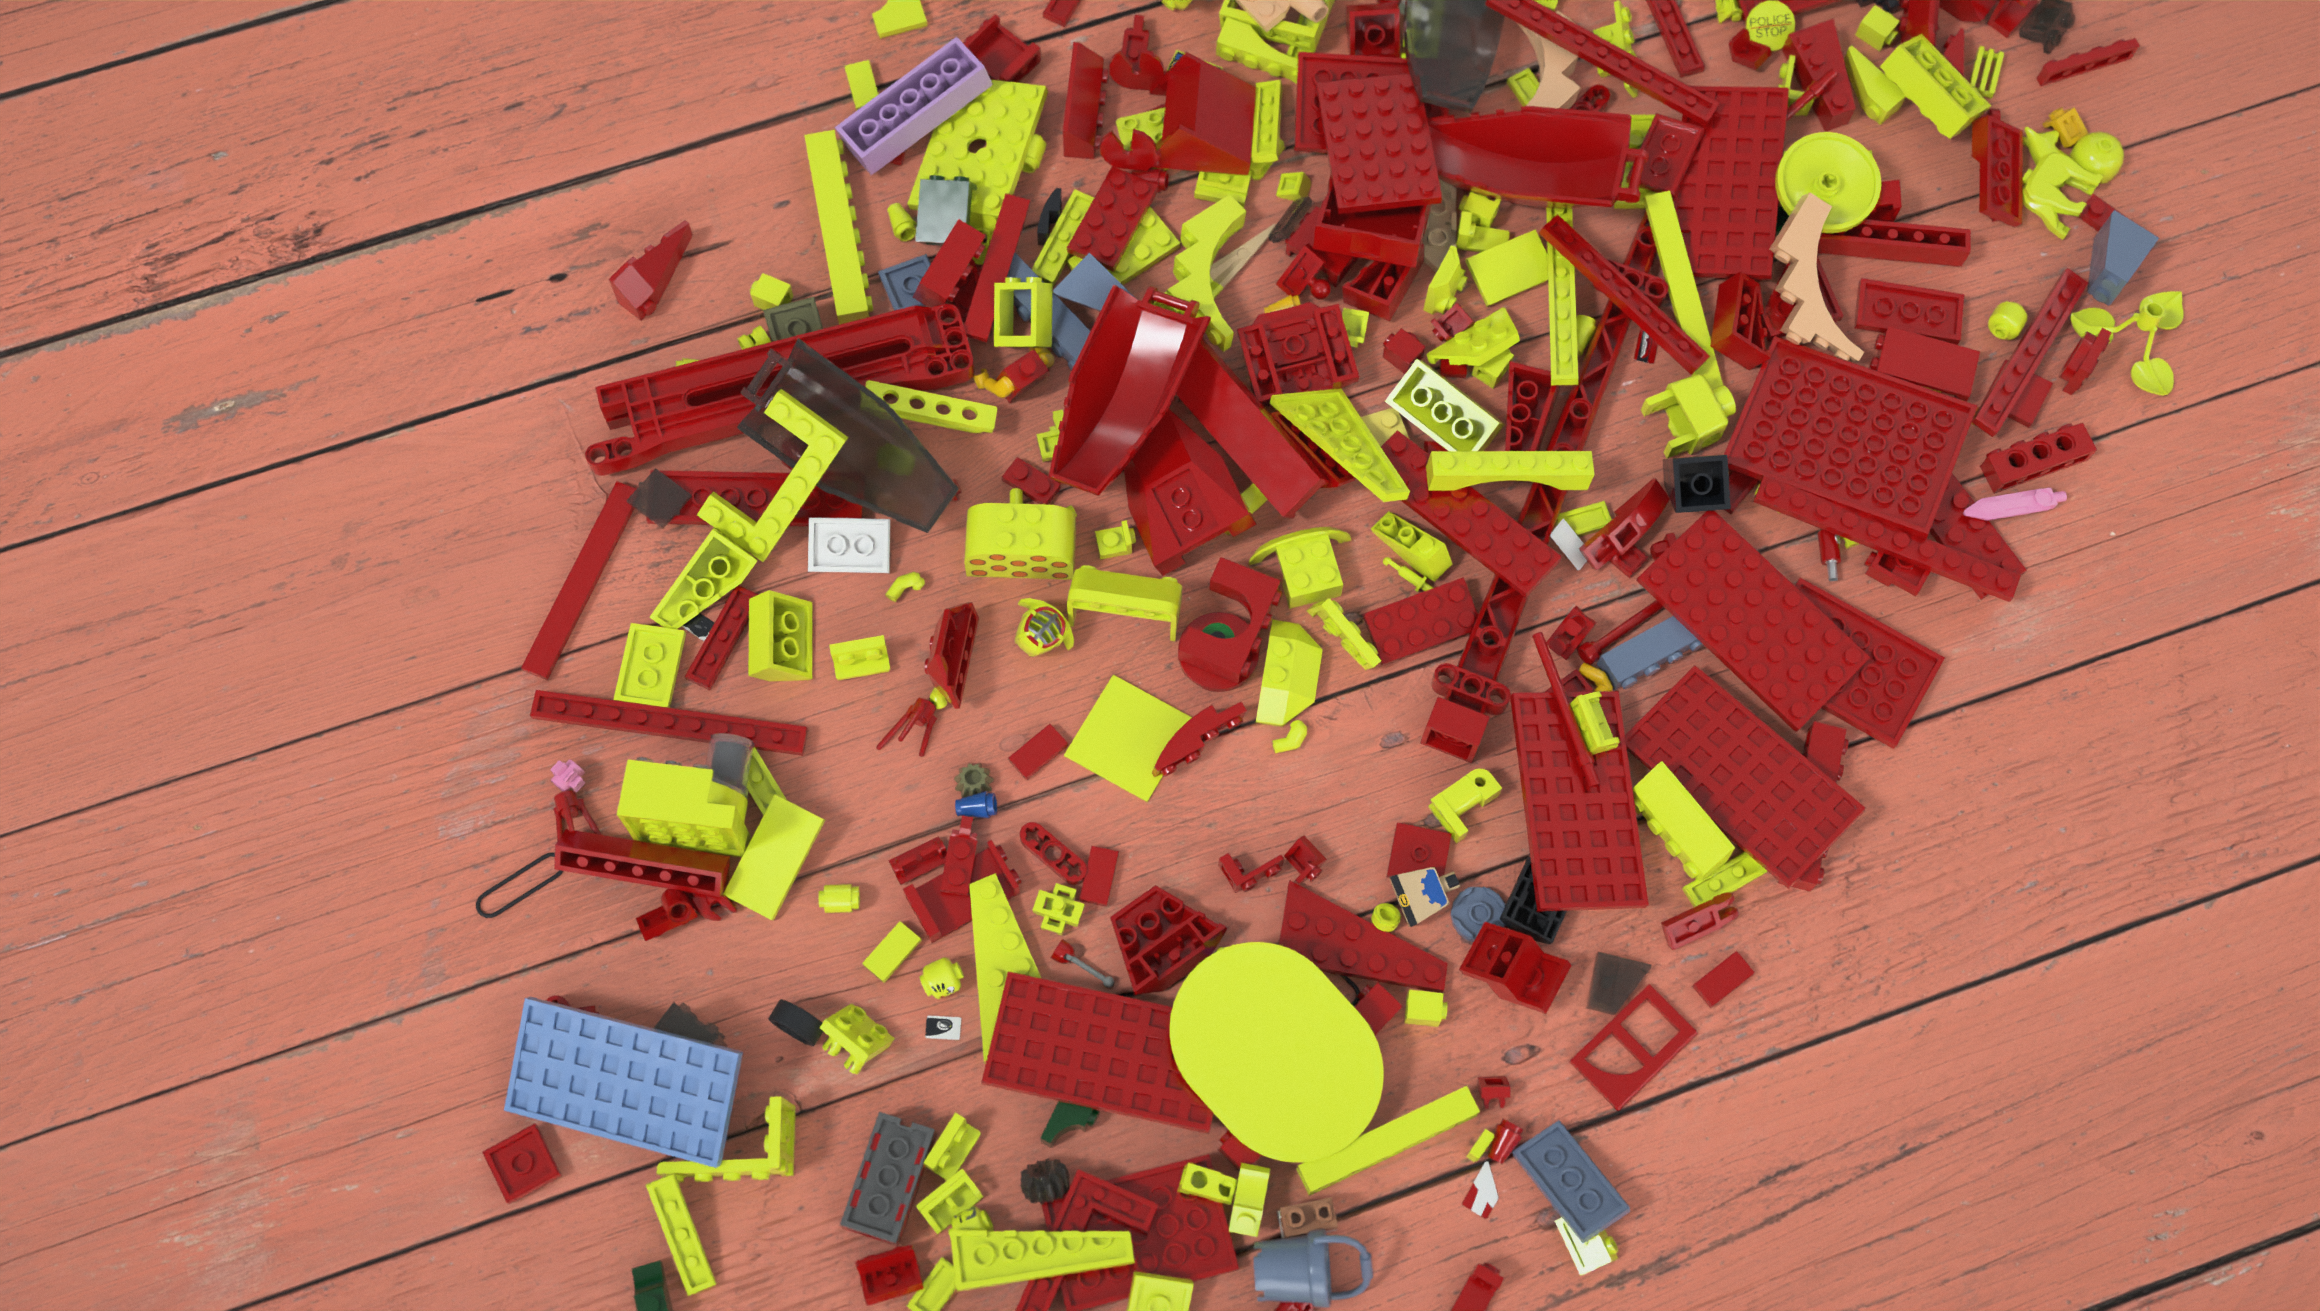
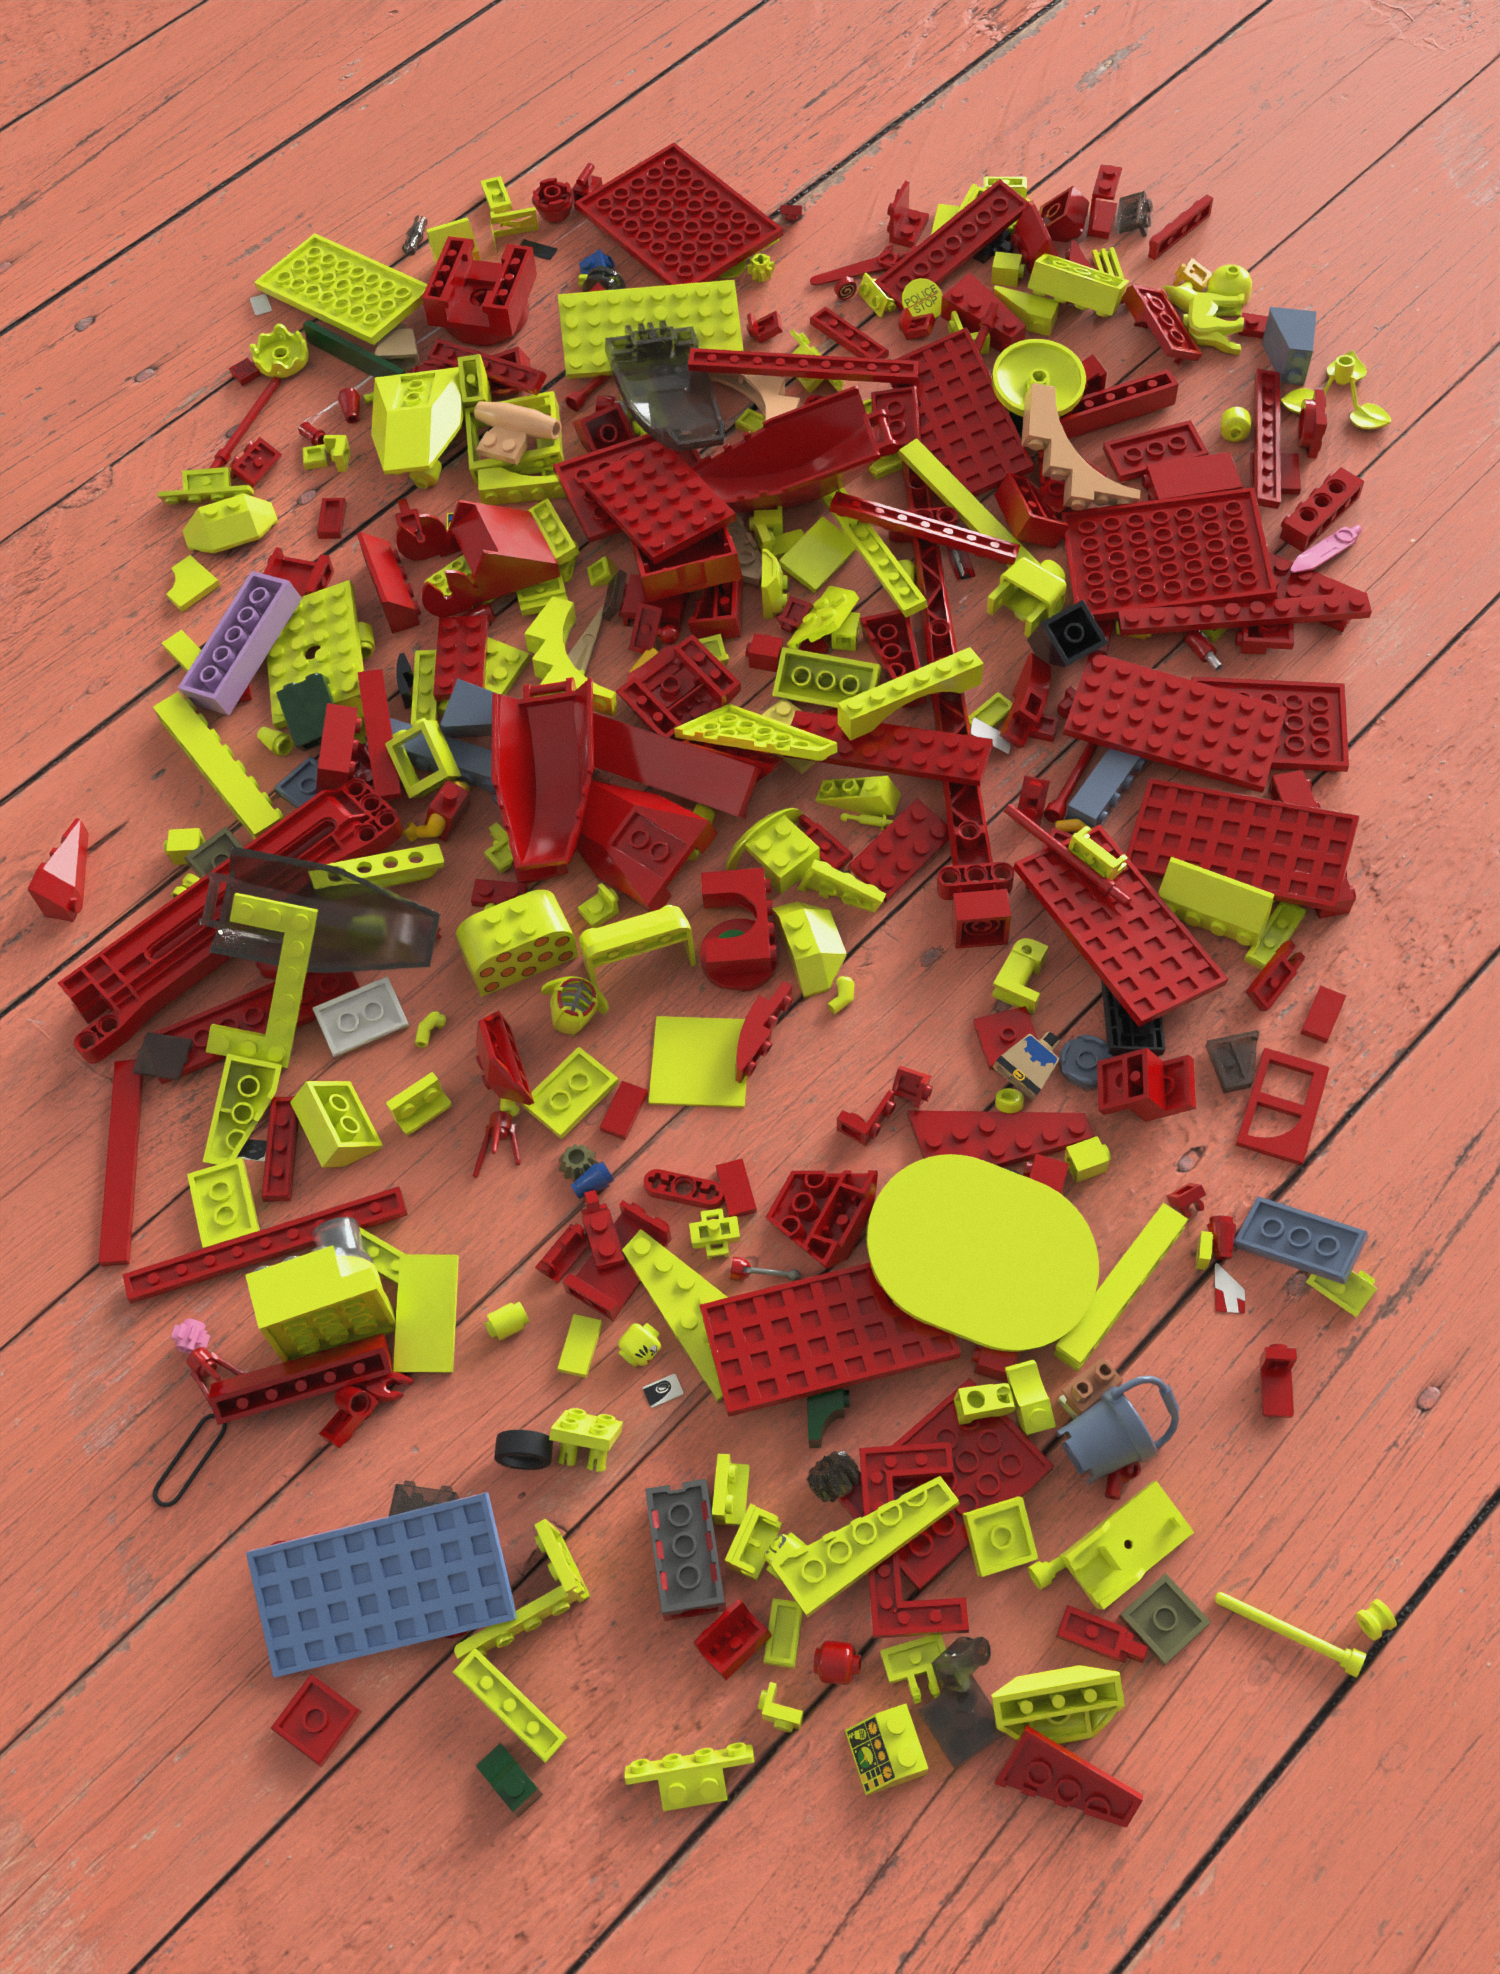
camera: 20 degrees left, 10 degrees down
(999, 711) = (571, 1092): none -> neon yellow plate
(1355, 586) = (830, 848): none -> red hinge

